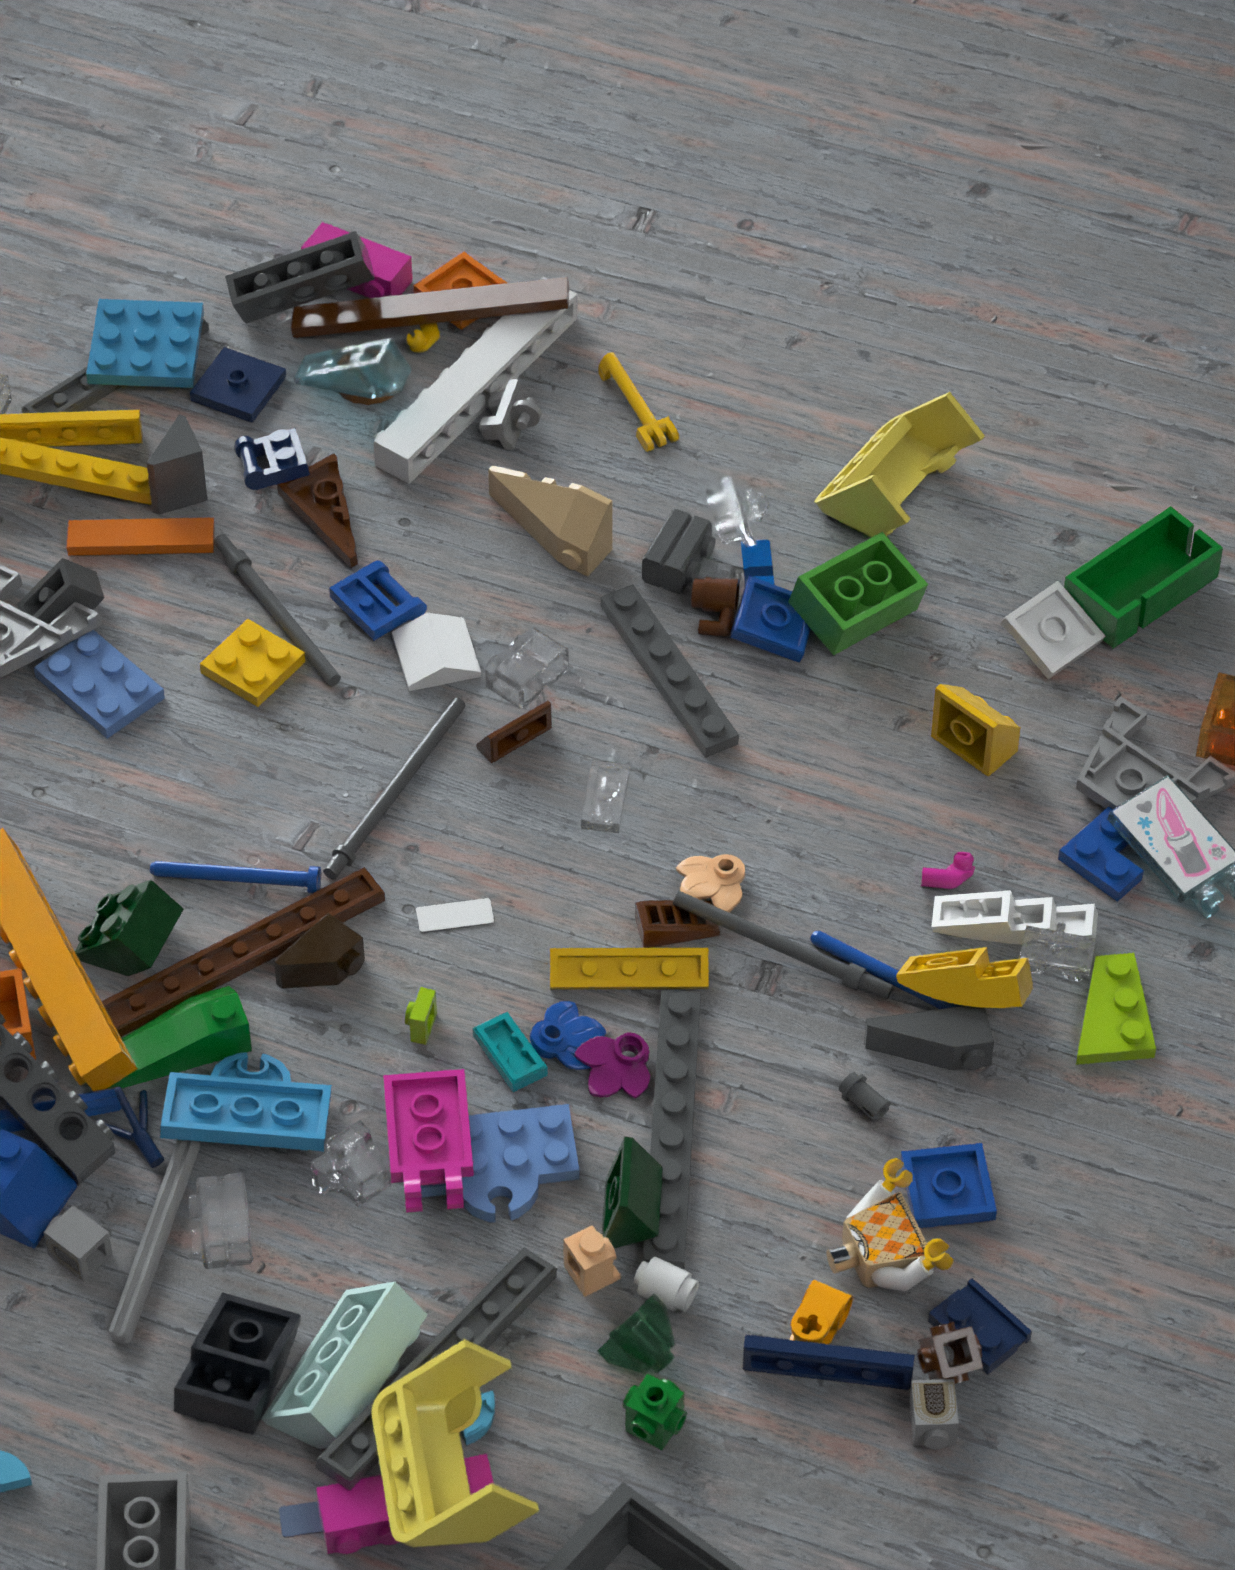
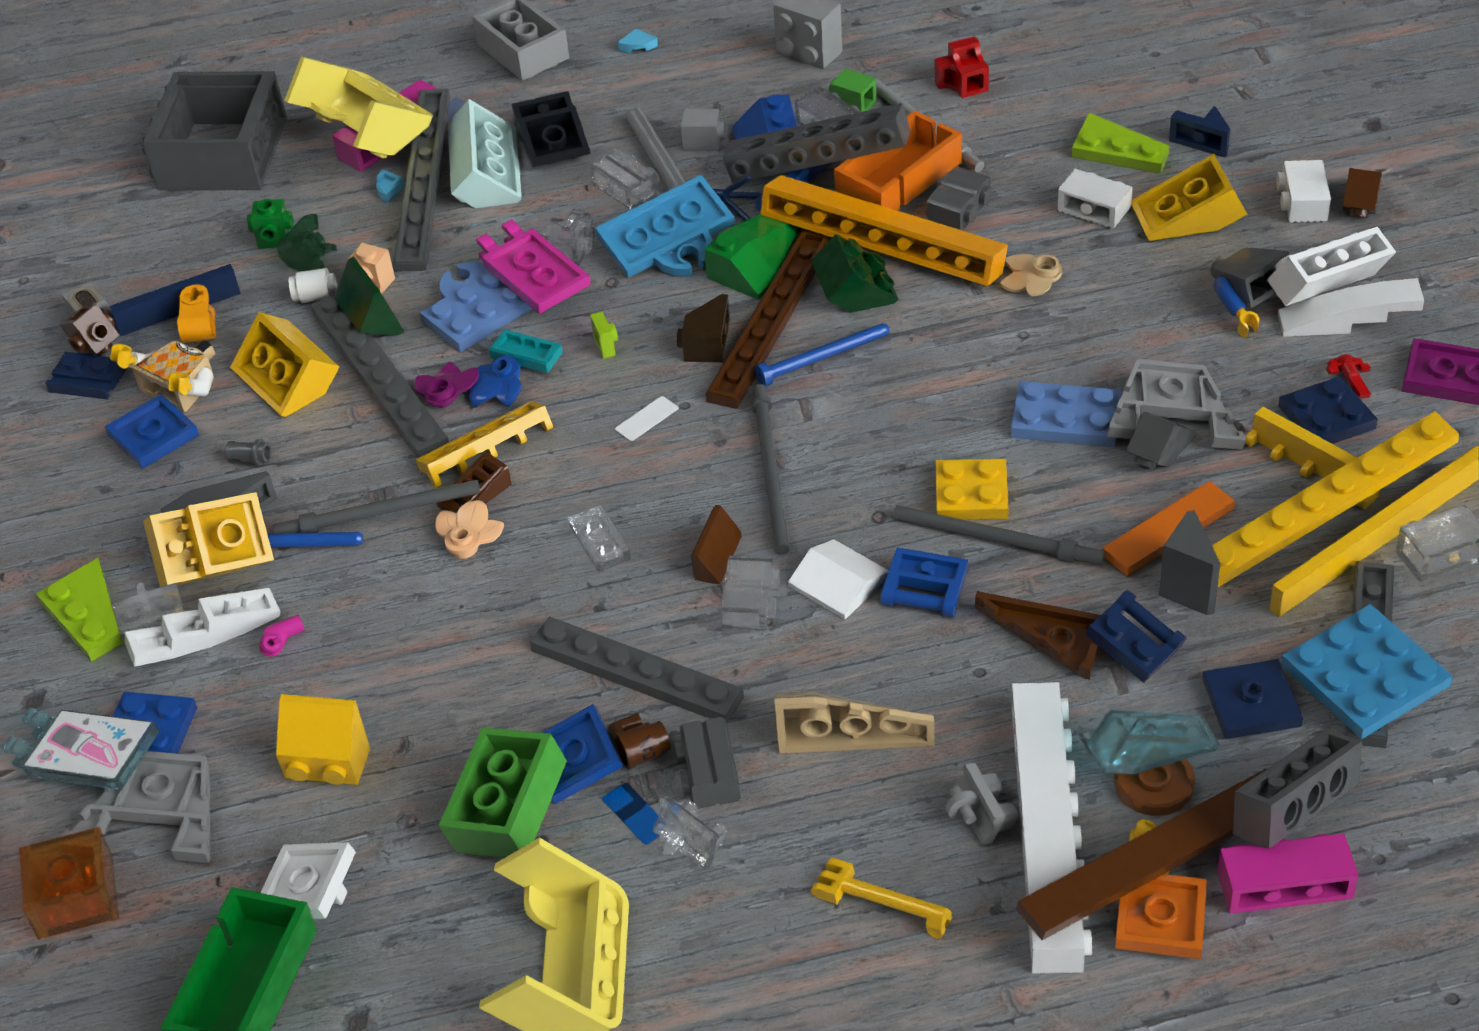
camera: 150 degrees right, 5 degrees down
(764, 1183) = (283, 364): none -> yellow slope

